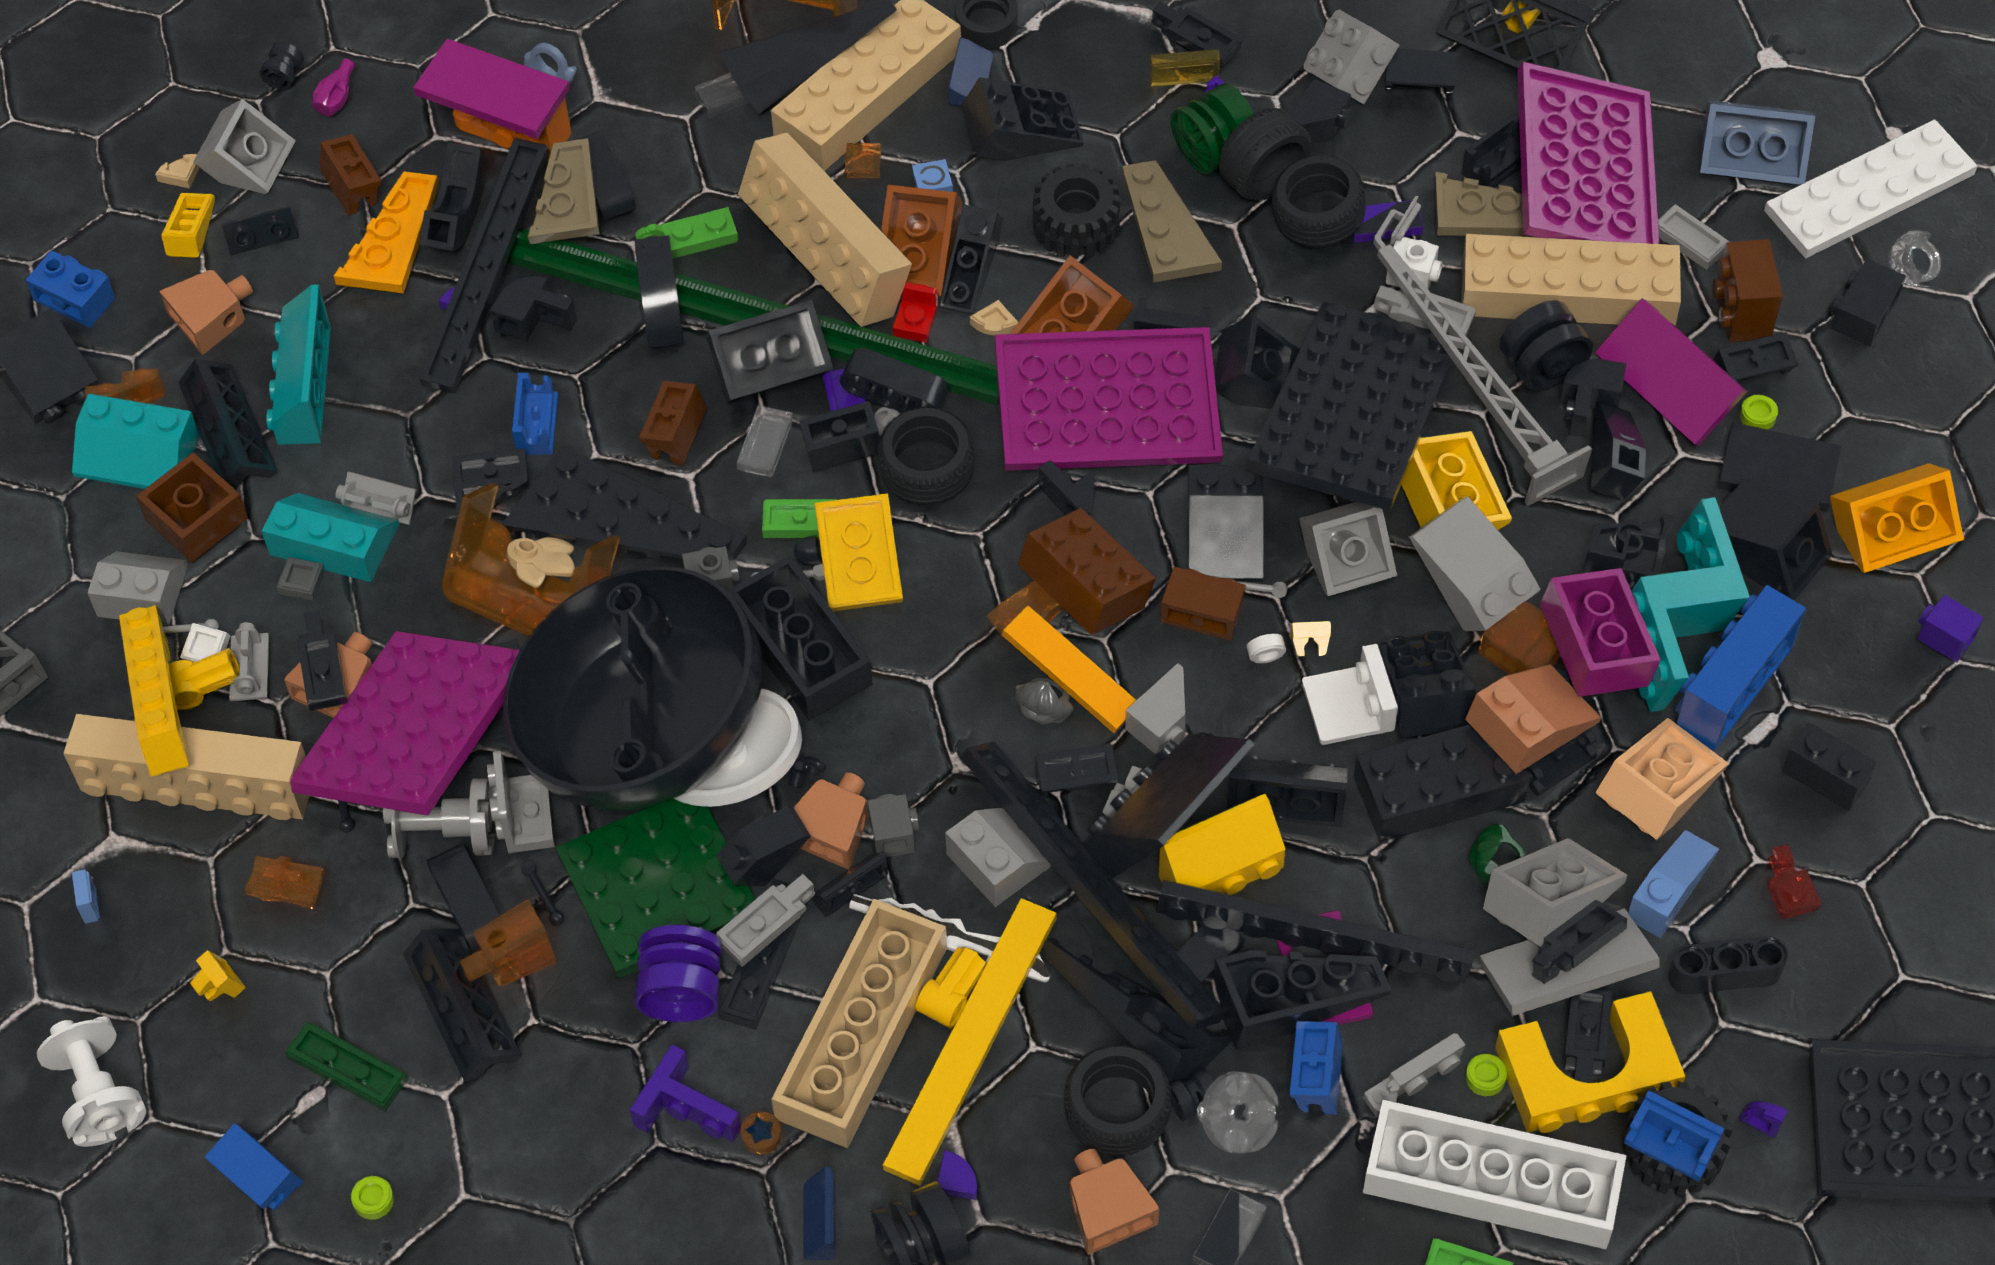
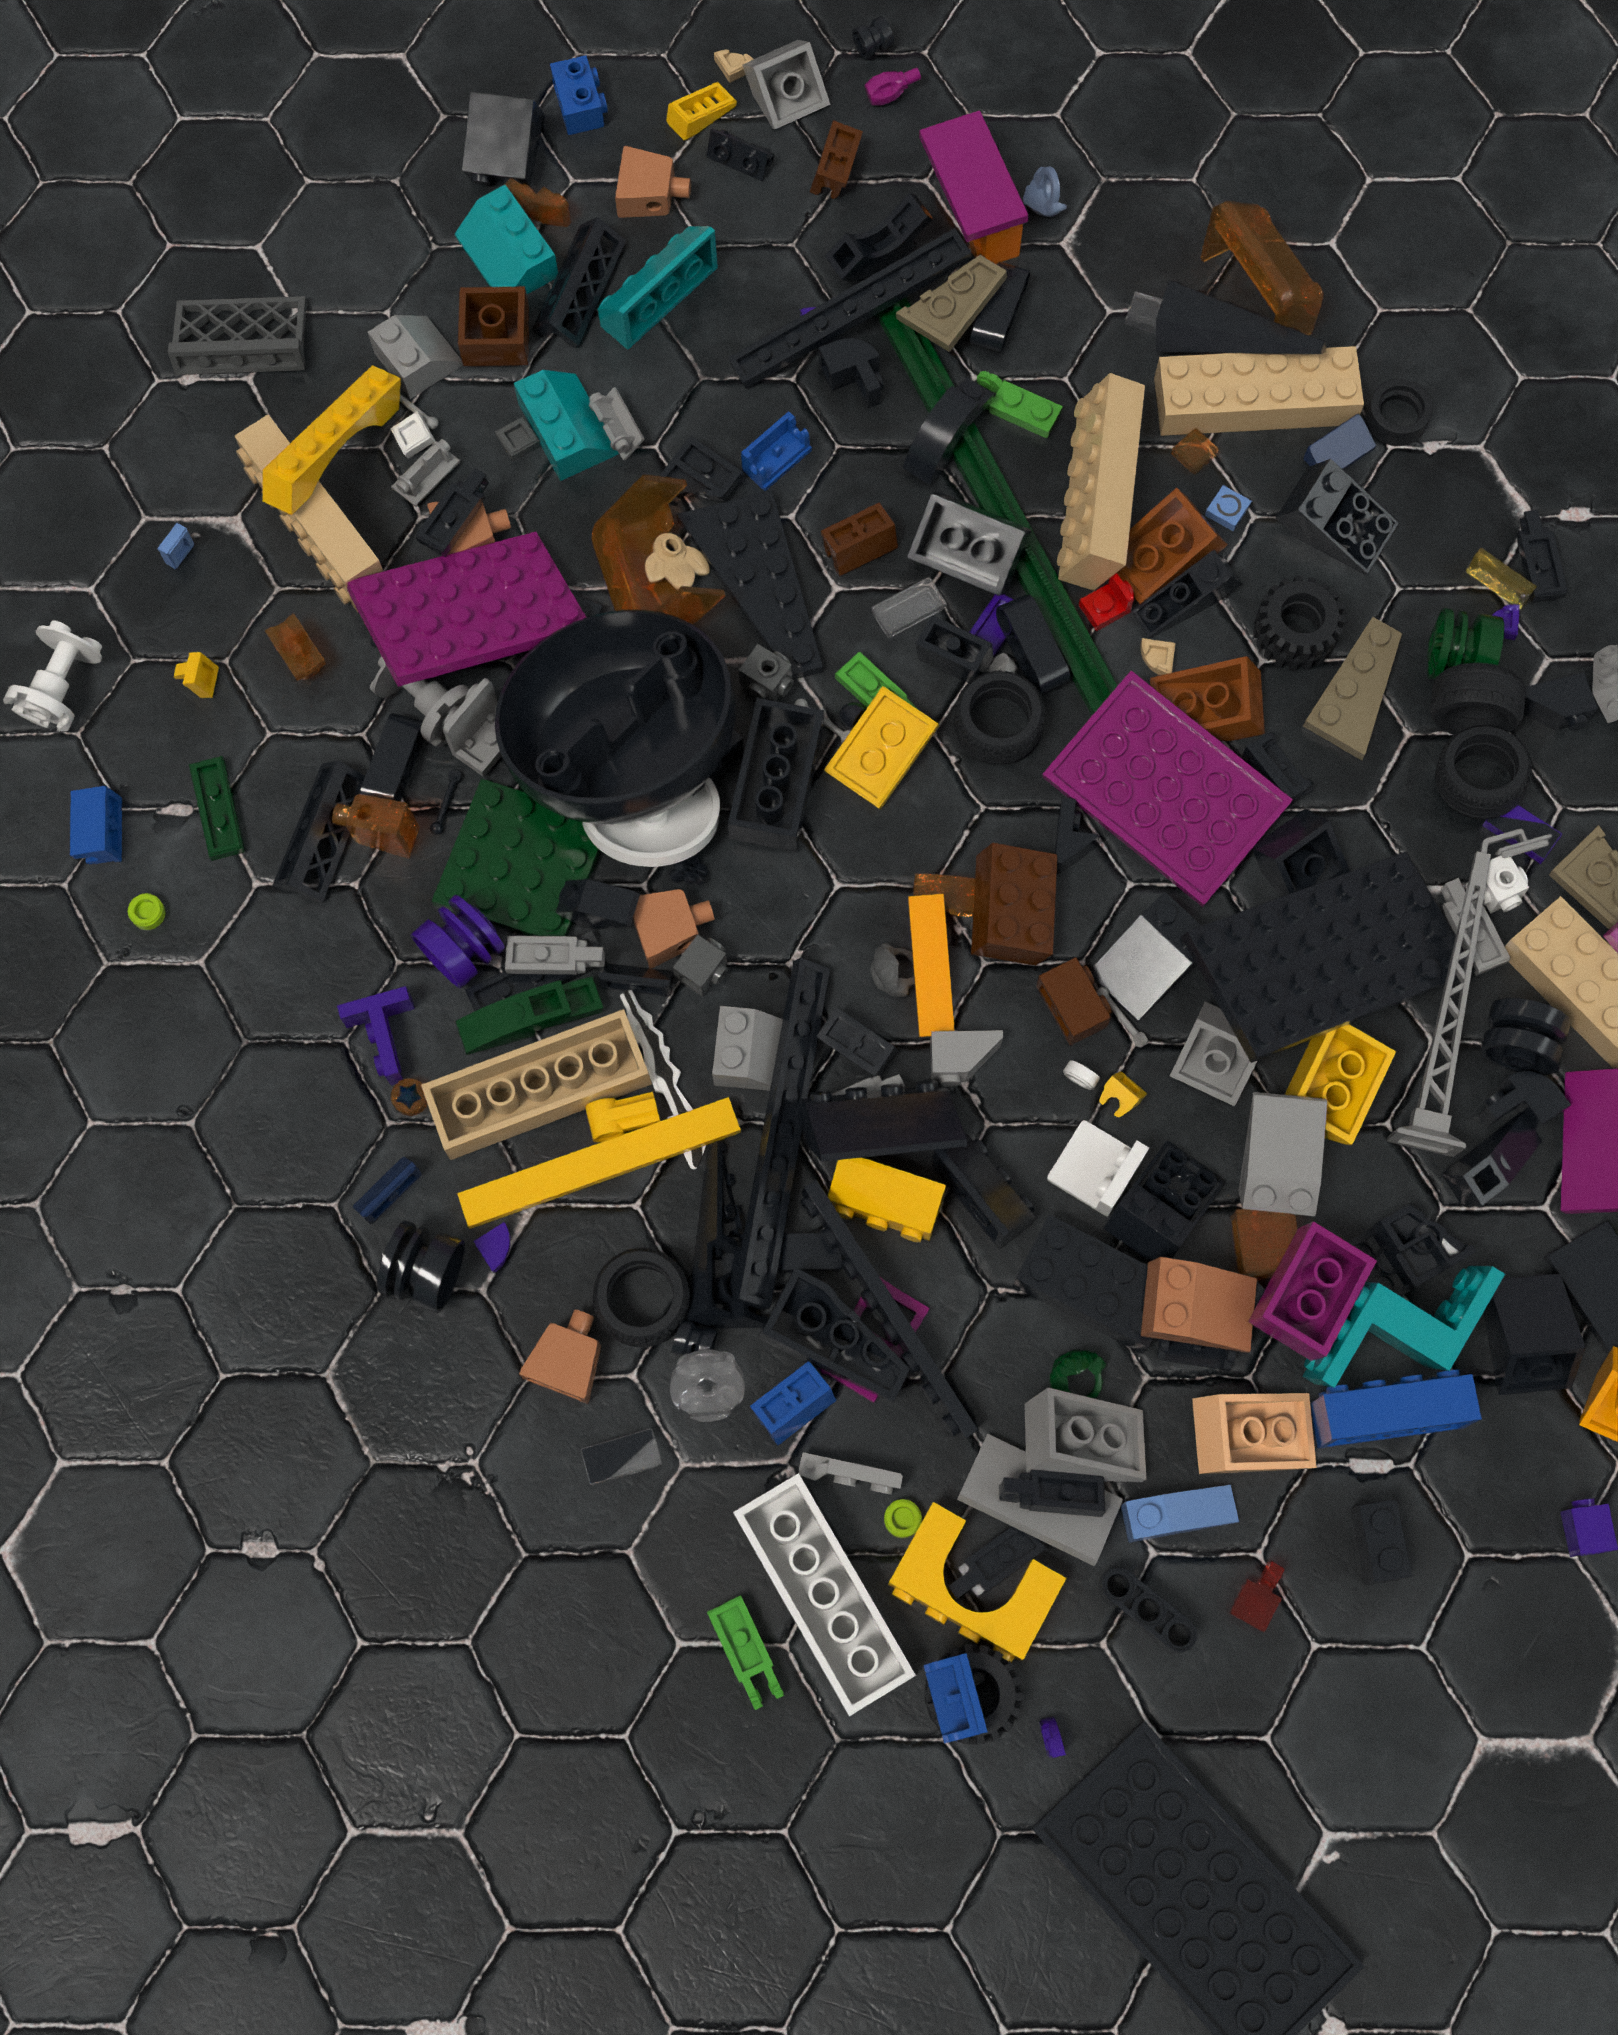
camera: 45 degrees right, 15 degrees up
(195, 679) = (379, 452): yellow piece -> none
(392, 239) = (803, 242): light orange wing -> none
(792, 981) = (528, 1012): none -> dark green slope

